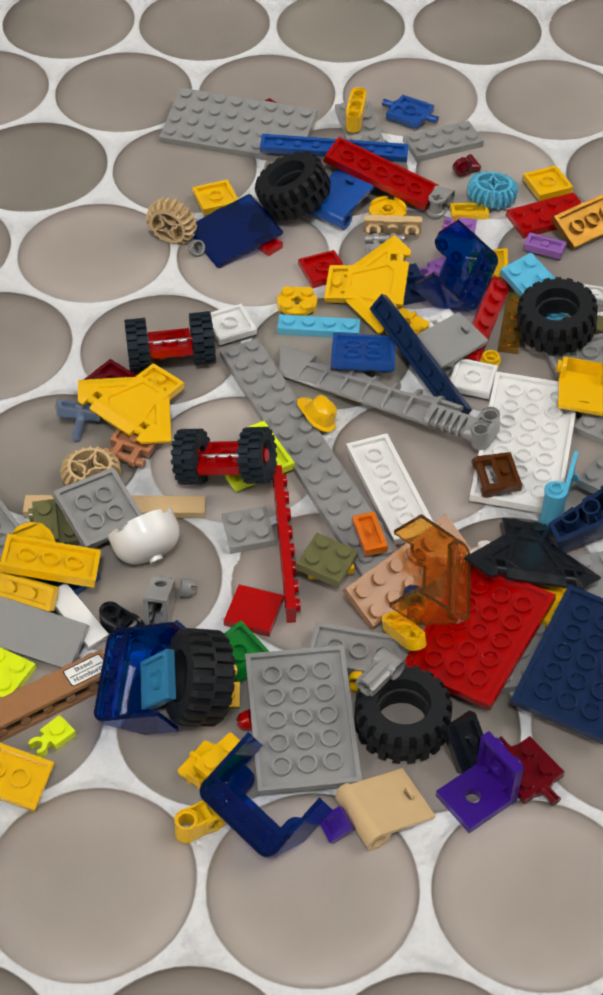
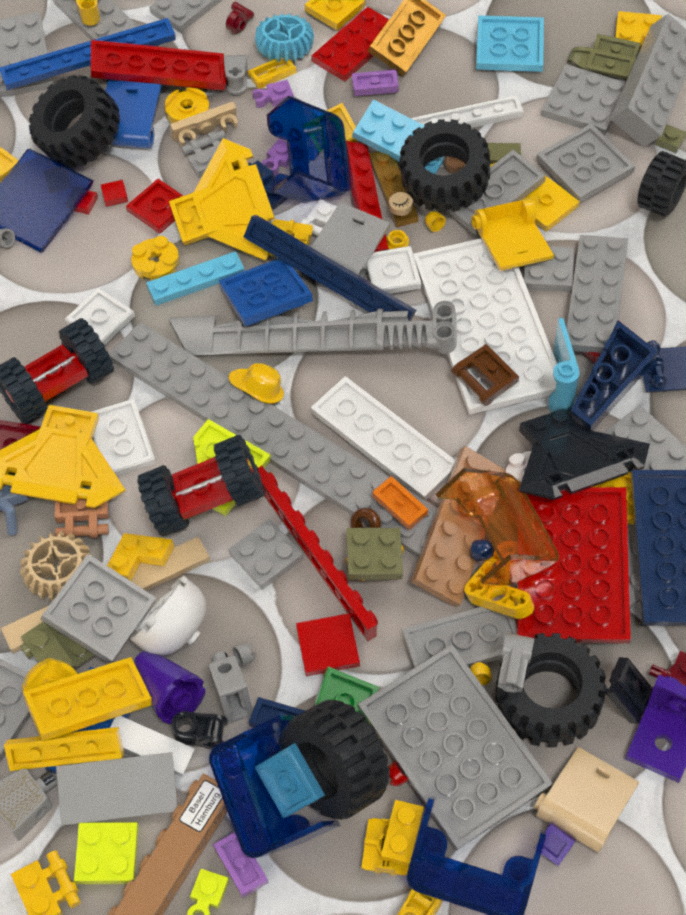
camera: 25 degrees left, 10 degrees up
(89, 729) = (242, 869): none -> medium lavender plate
(116, 582) = (169, 685): none -> dark purple cone
(154, 485) = (139, 549): none -> yellow plate
(194, 407) = (123, 438): none -> white tile
(295, 248) = (114, 193): none -> red tile
(340, 531) = (368, 513): none -> reddish brown piece
(508, 333) = (400, 203): none -> tan tile
(532, 359) = (435, 221): none -> yellow hinge

